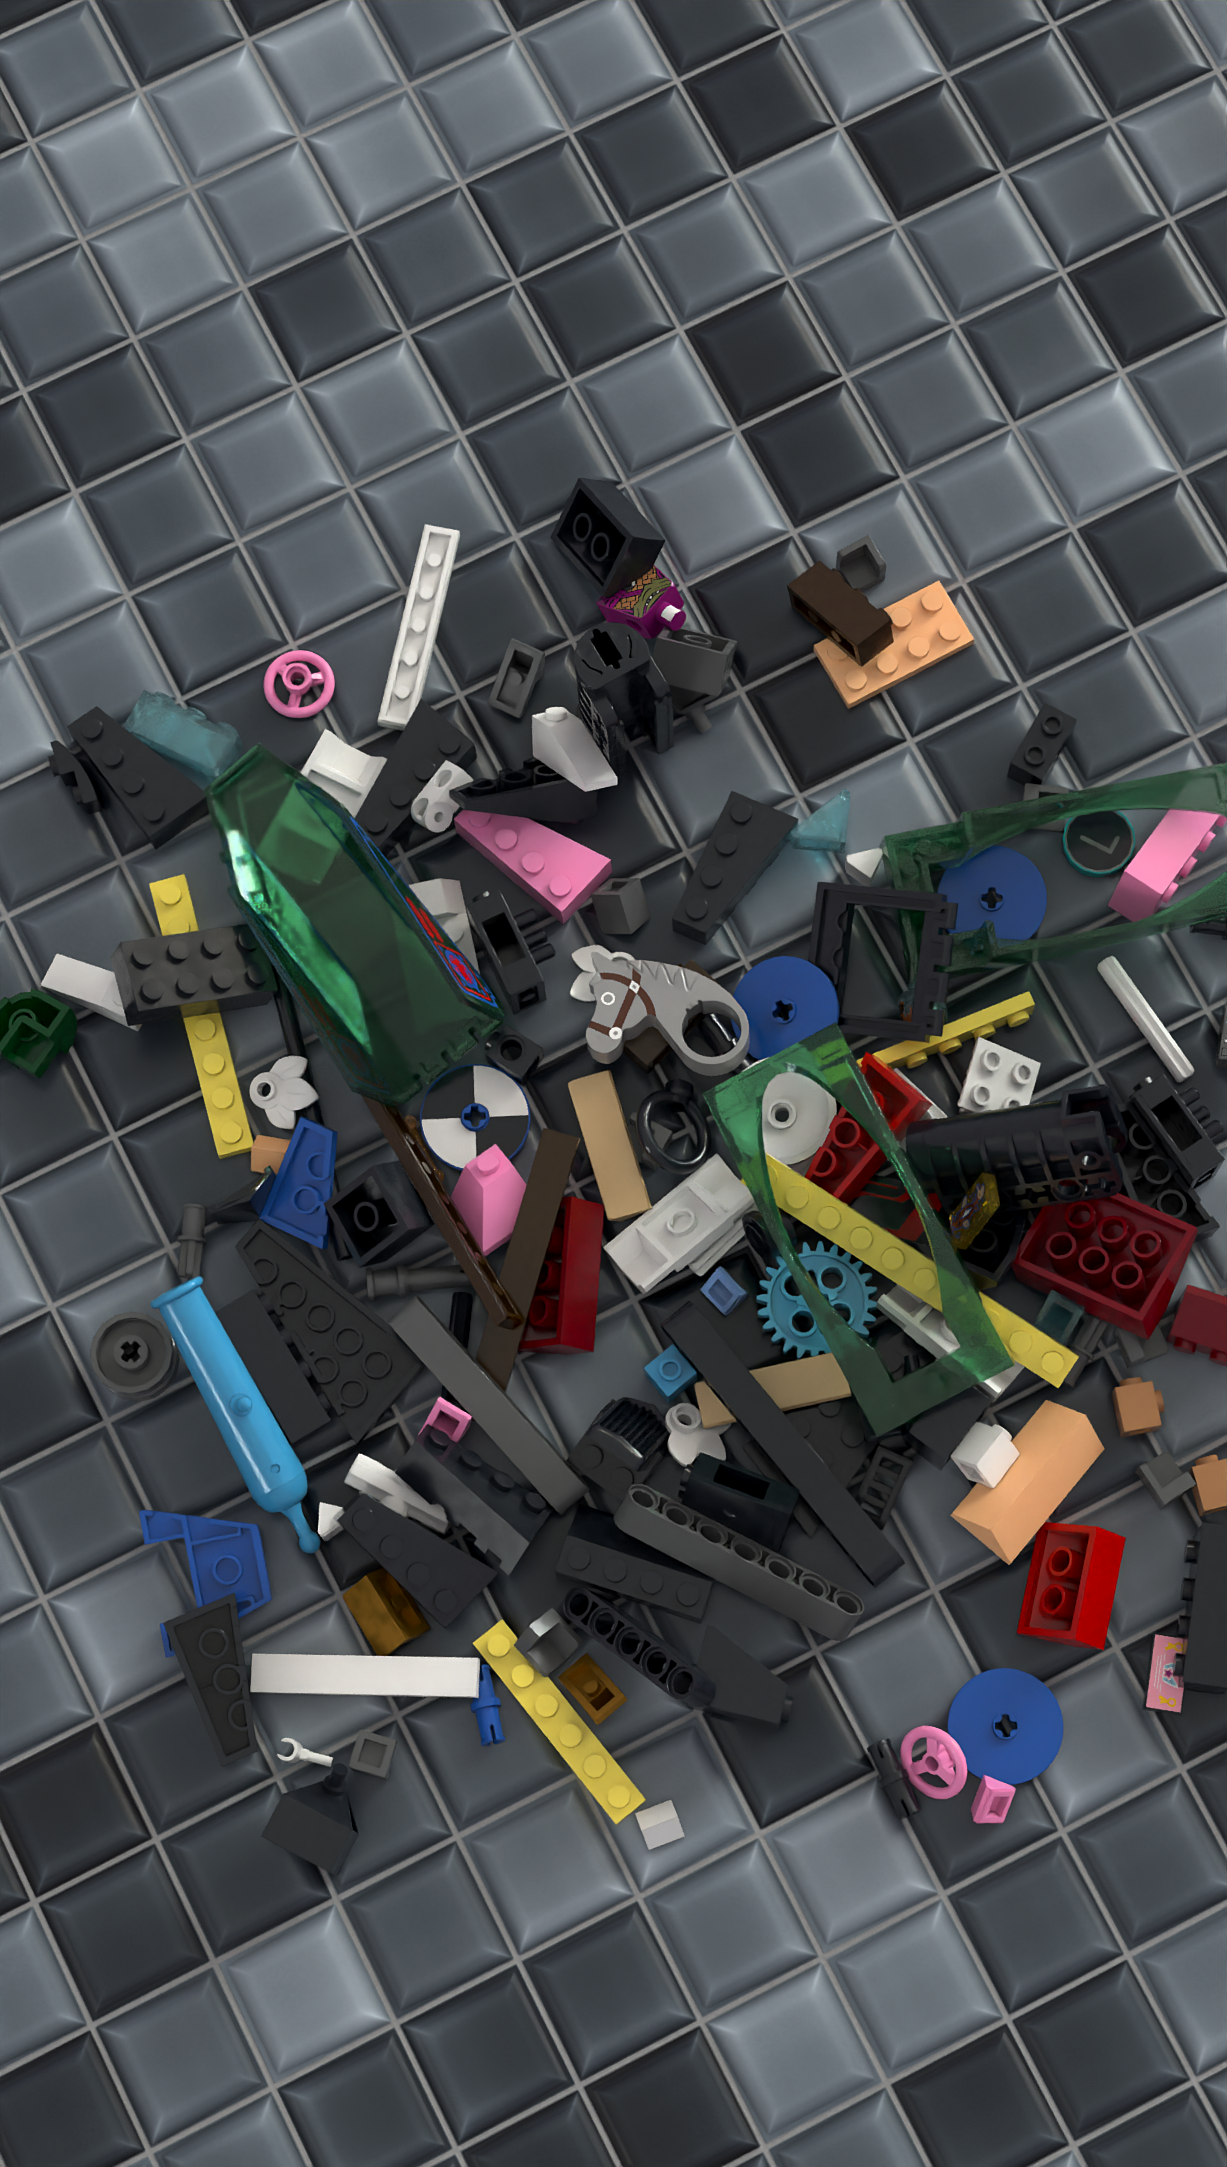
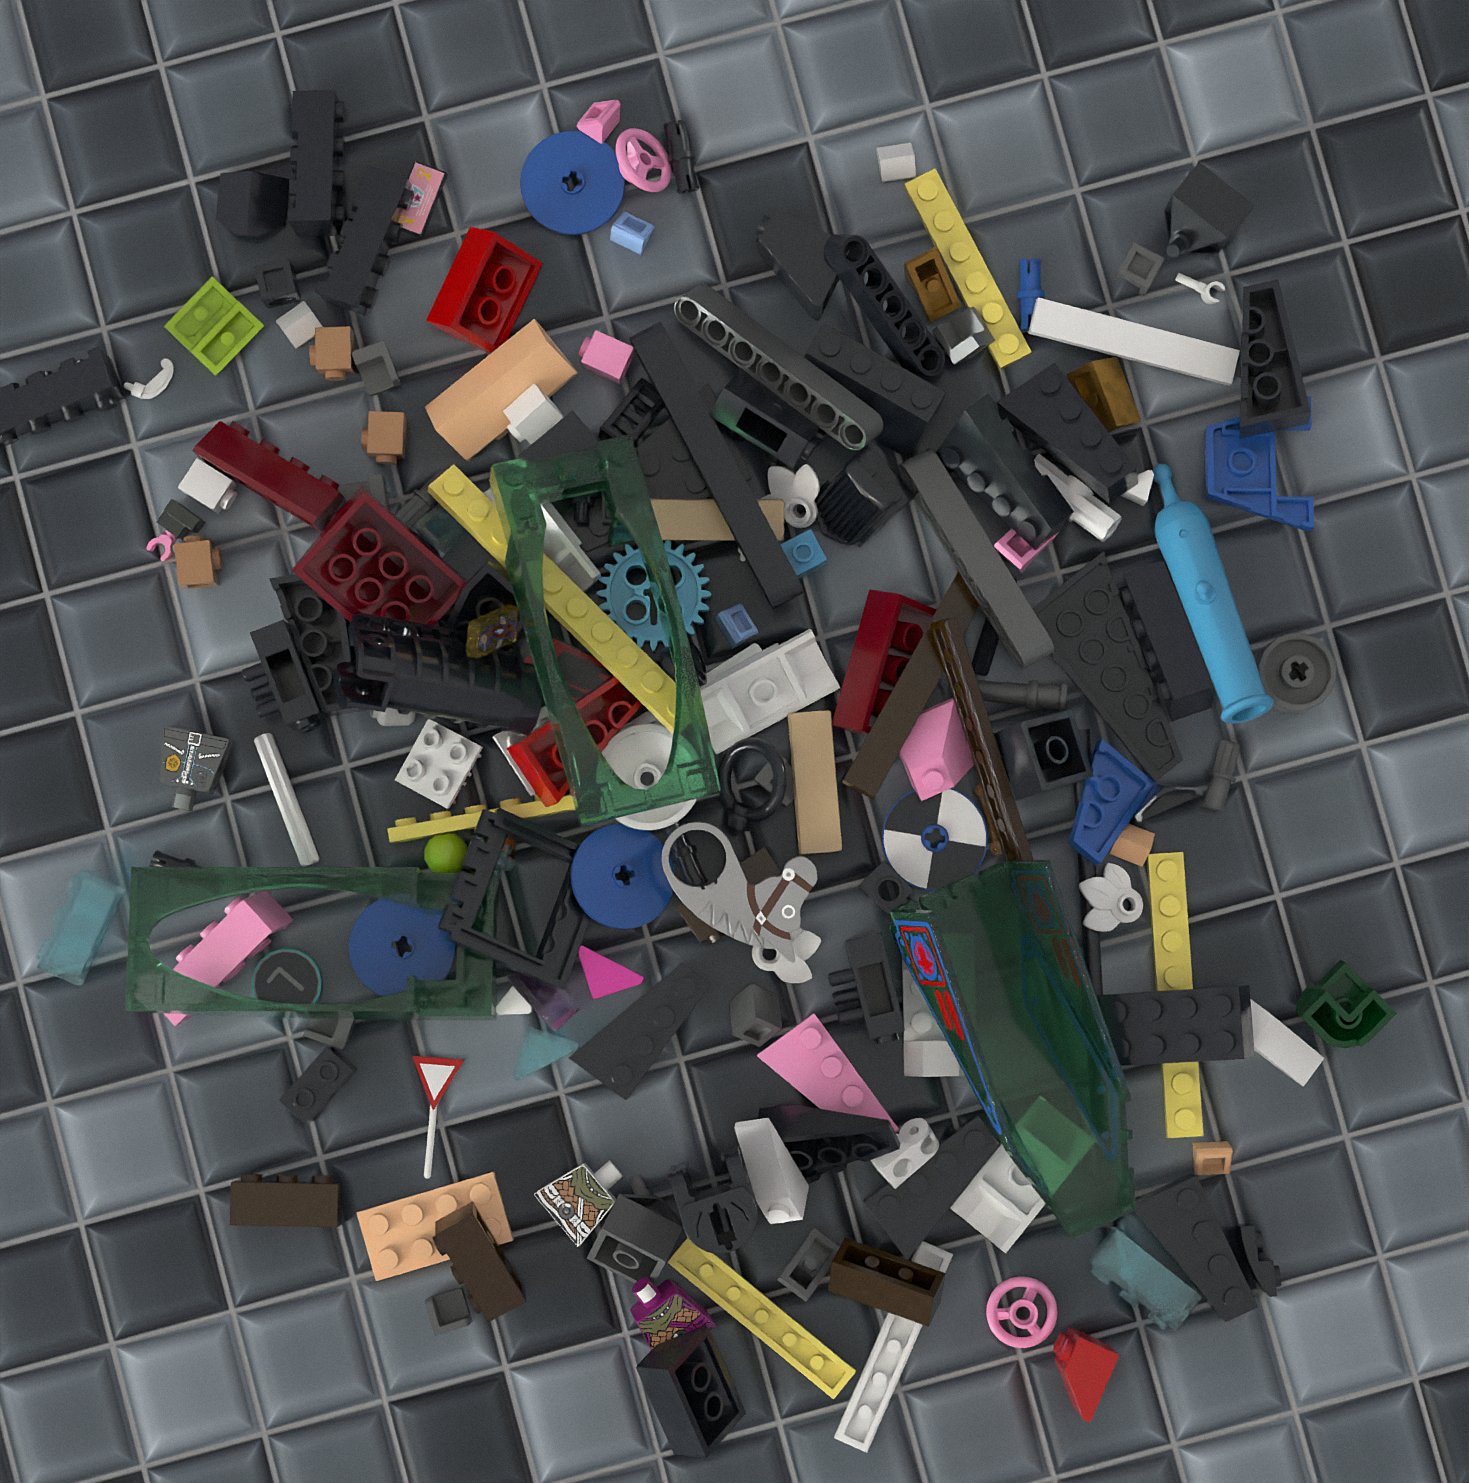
camera: 170 degrees left, 10 degrees up
(137, 867) = (1212, 1158): none -> light nougat slope
(226, 633) = (1085, 1368): none -> red slope
(437, 675) = (886, 1282): none -> dark brown brick
(520, 609) = (762, 1317): none -> light yellow plate
(757, 695) = (580, 1199): none -> torso
(778, 913) = (606, 975): none -> dark pink slope
(827, 867) = (552, 1005): none -> clear purple slope
(925, 1541) = (606, 356): none -> bright pink brick
(926, 784) = (436, 1077): none -> piece
(928, 1687) = (631, 232): none -> light blue slope
(968, 994) = (445, 853): none -> lime piece
(1045, 633) = (286, 1201): none -> dark brown brick

